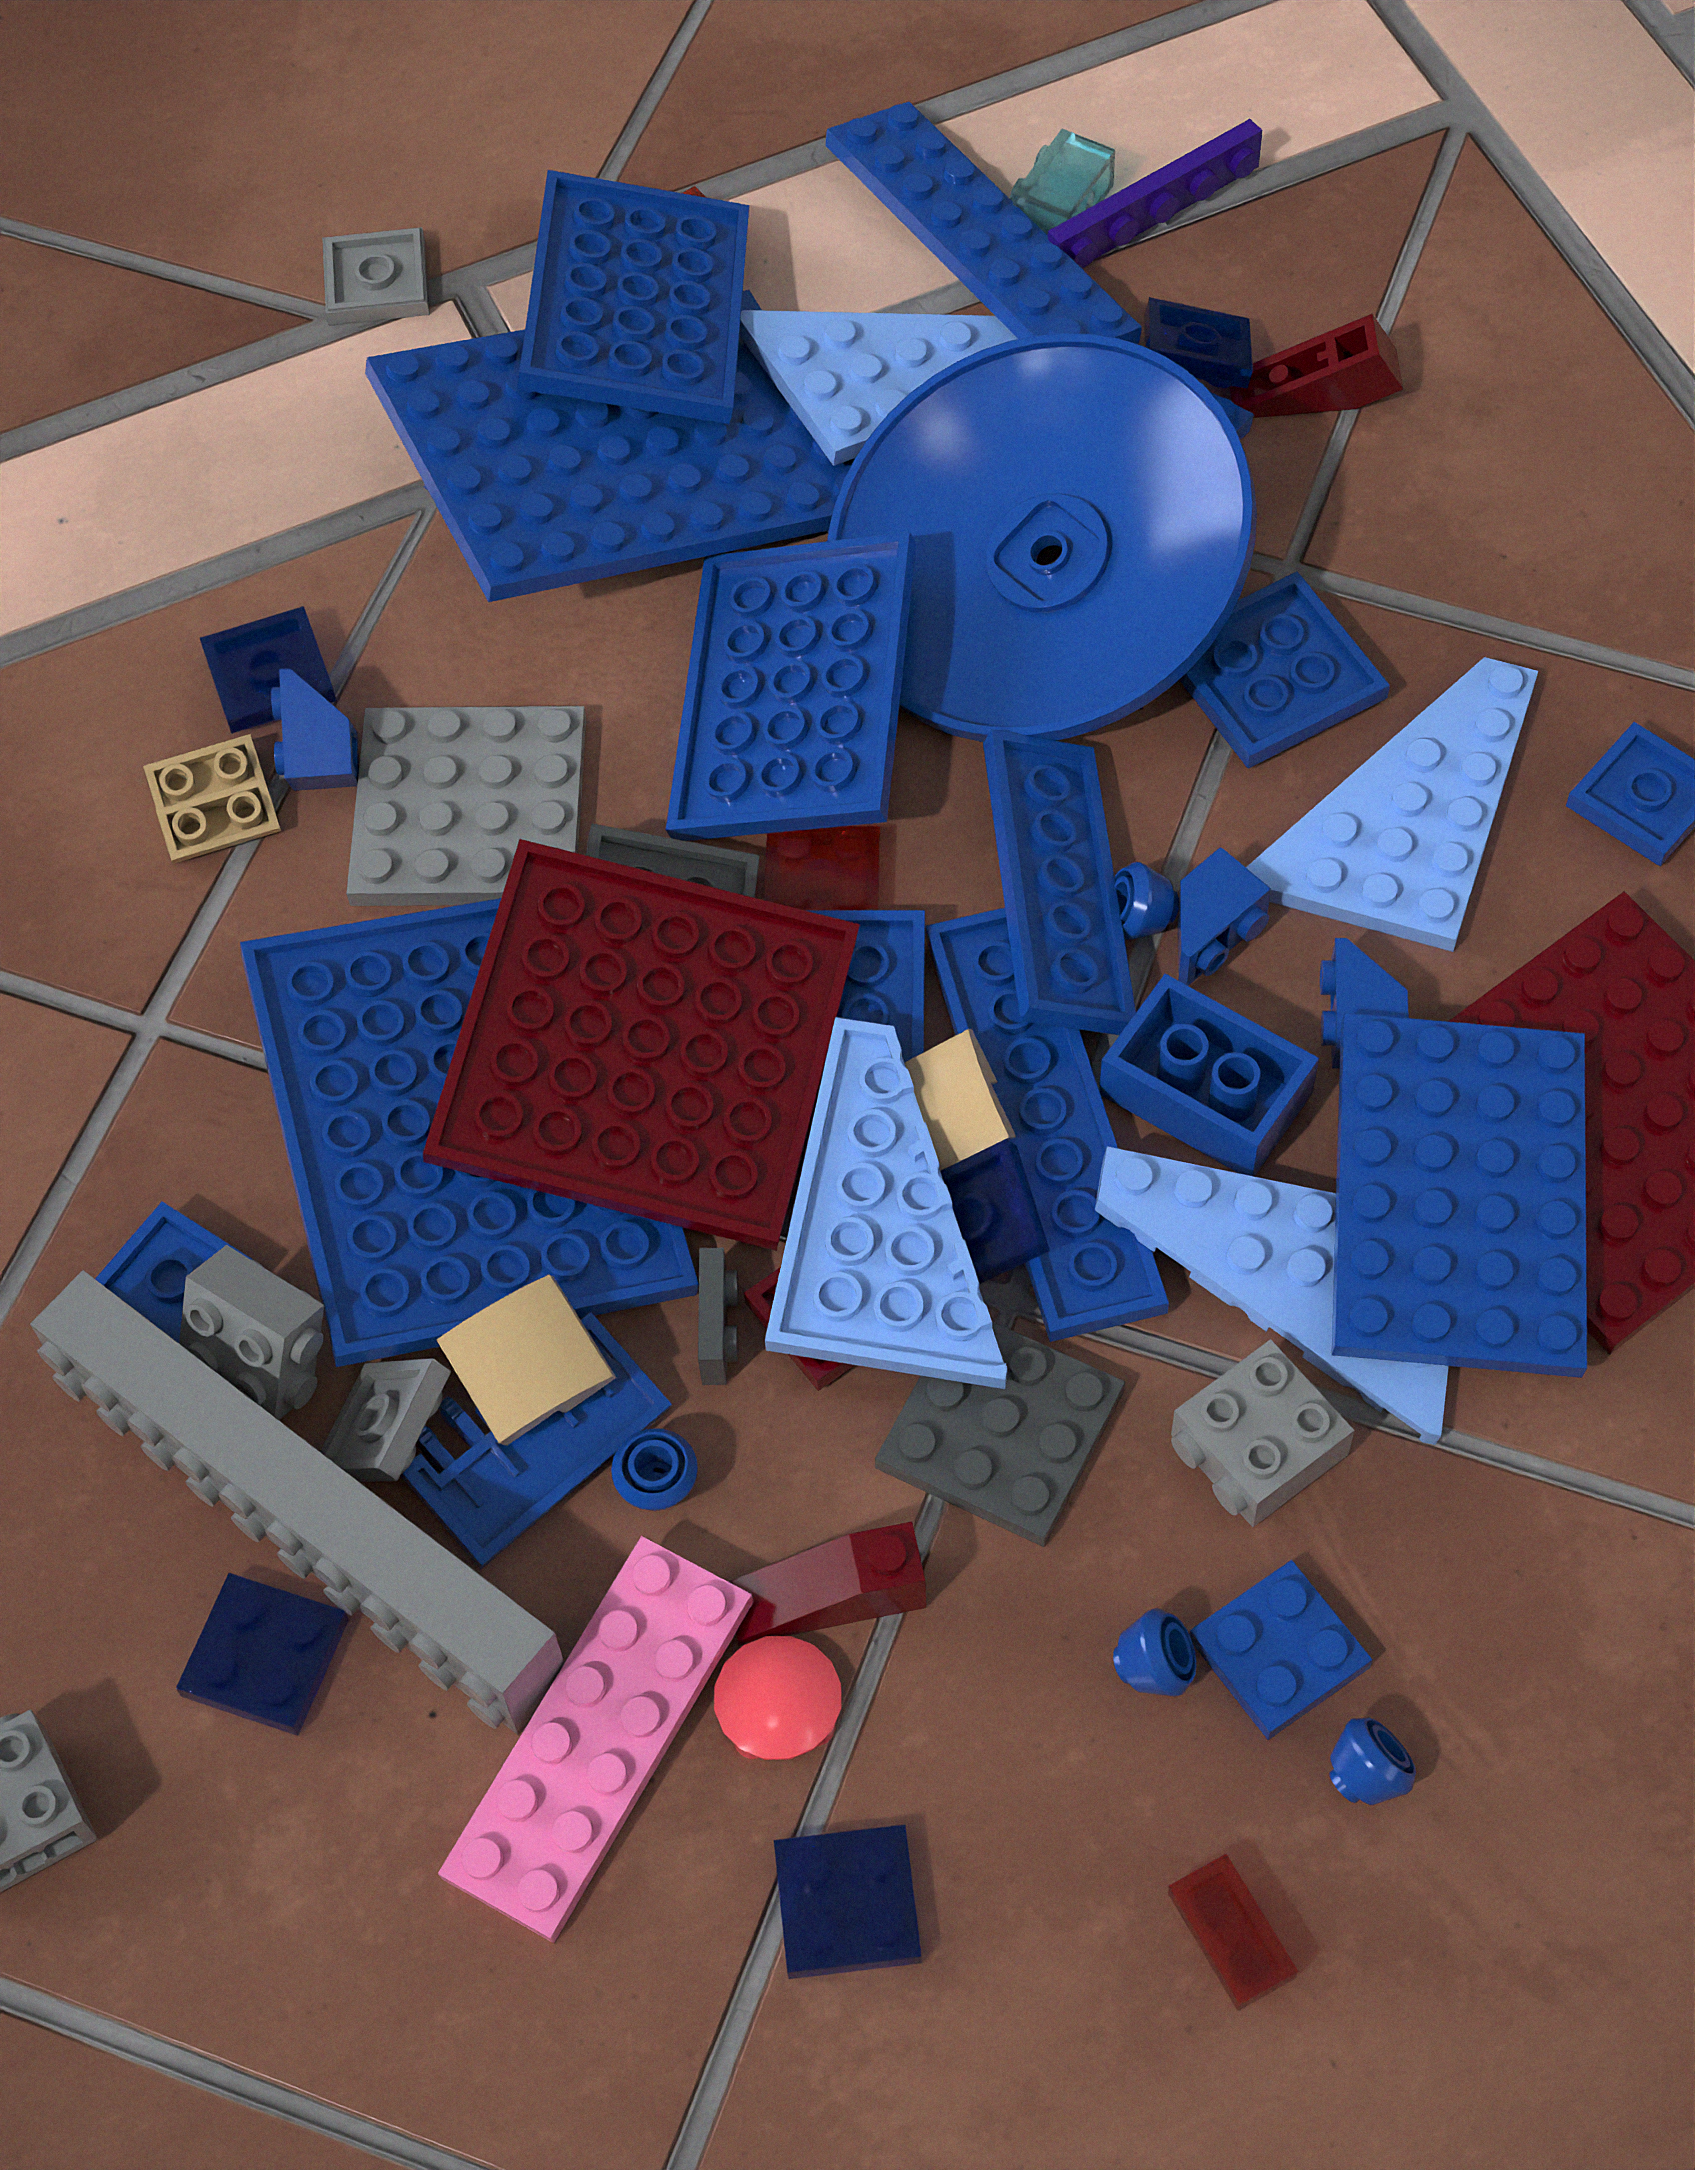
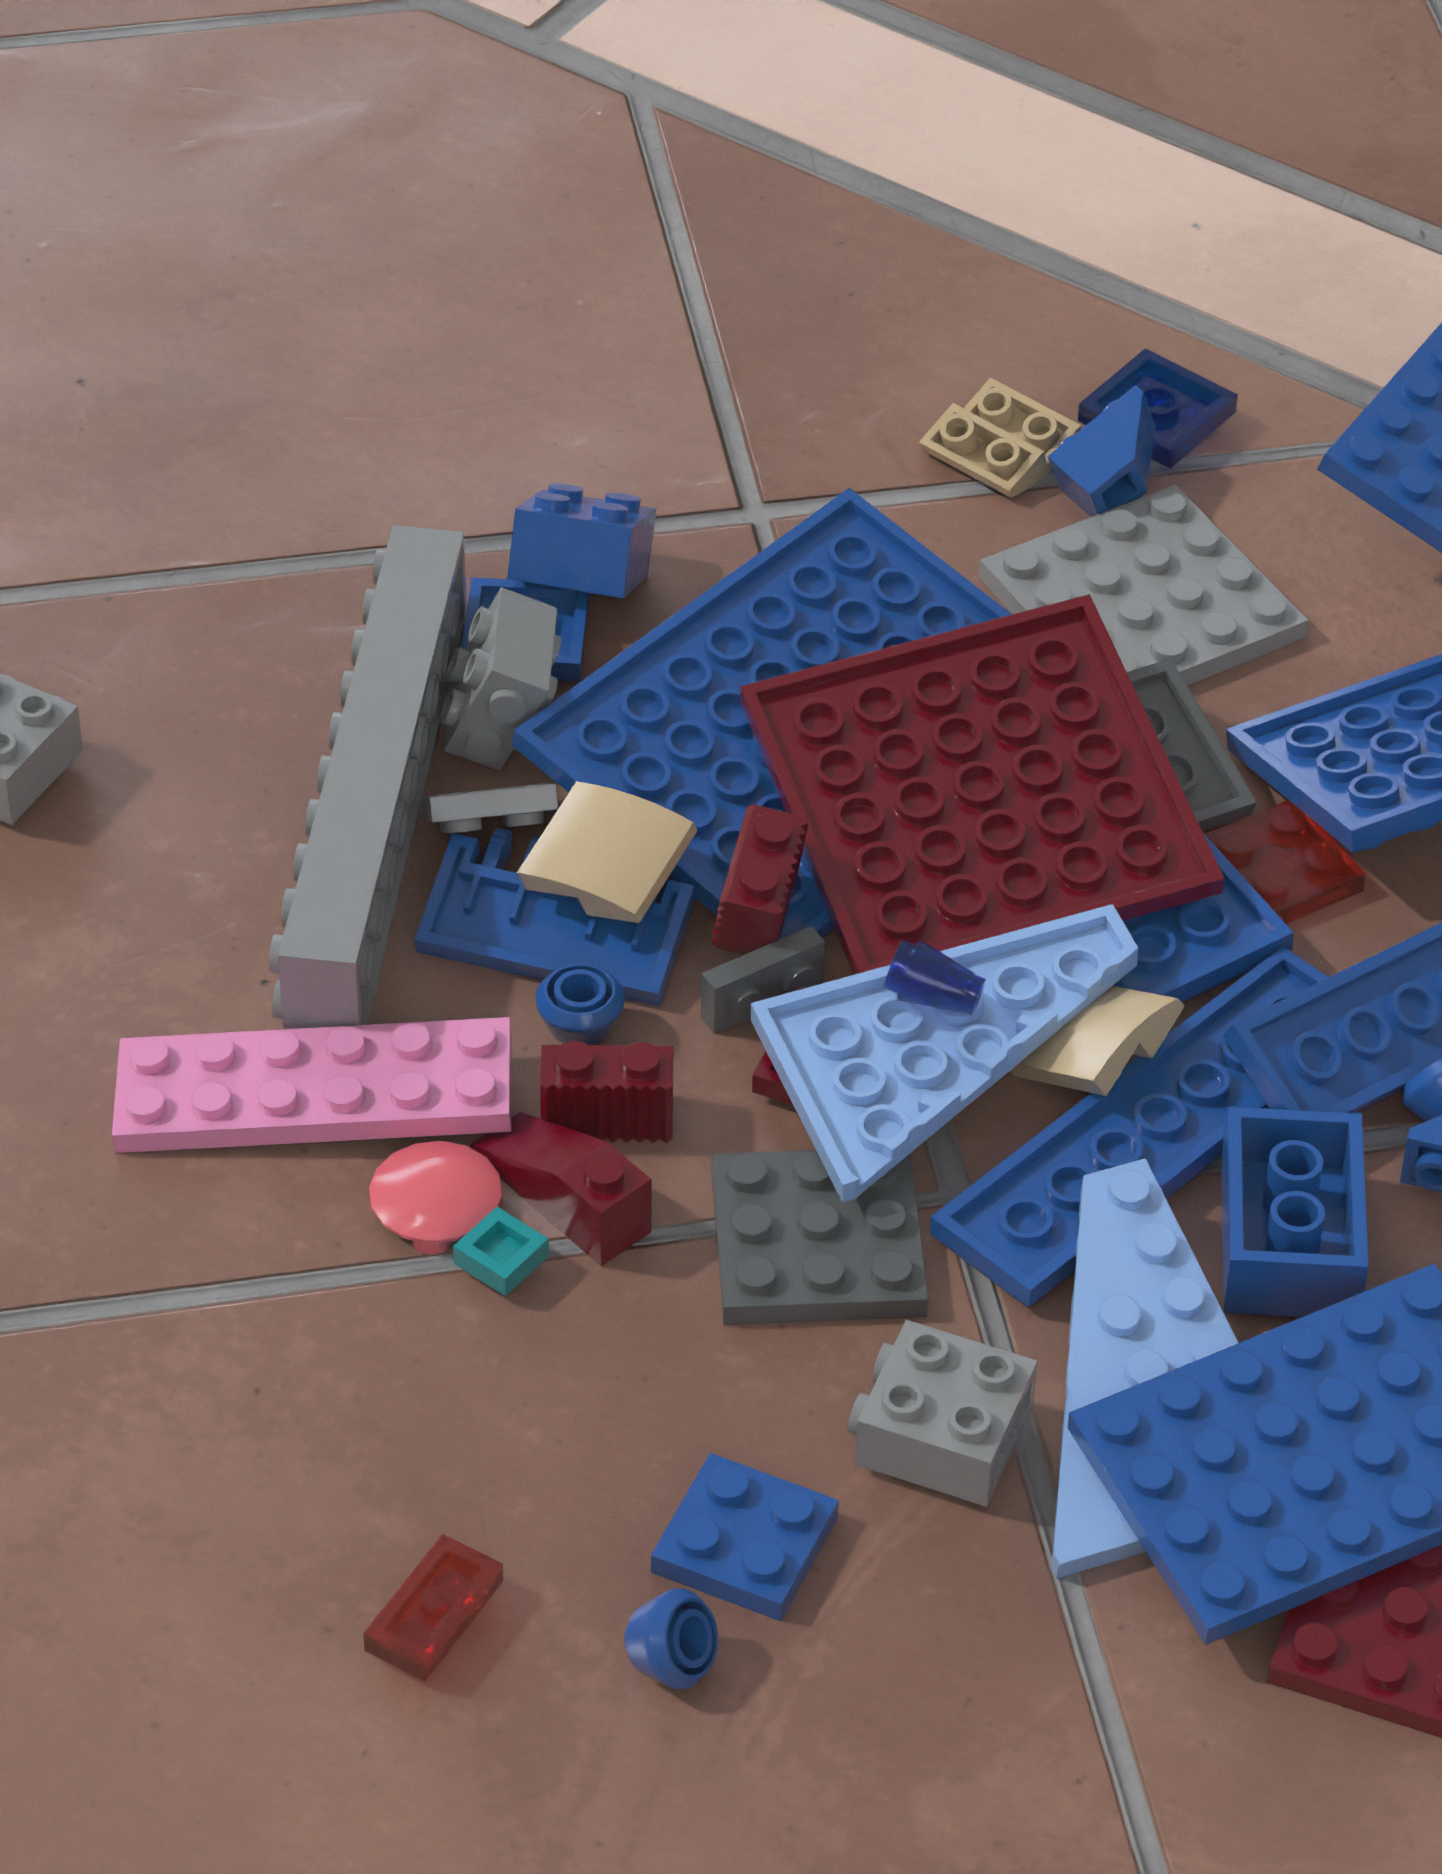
camera: 55 degrees right, 15 degrees down
(126, 1181) = (582, 541): none -> blue brick
(262, 1654) = (236, 846): clear blue plate -> none
(637, 1259) = (760, 880): none -> dark red brick
(764, 1501) = (609, 1089): none -> dark red brick
(846, 1192) = (932, 979): none -> clear blue cone
(847, 1902) = (280, 1325): clear blue plate -> none
(881, 1679) = (501, 1251): none -> teal plate
(995, 1210) = (1013, 1114): clear blue plate -> none
(1156, 1655) = (666, 1432): blue cone -> none

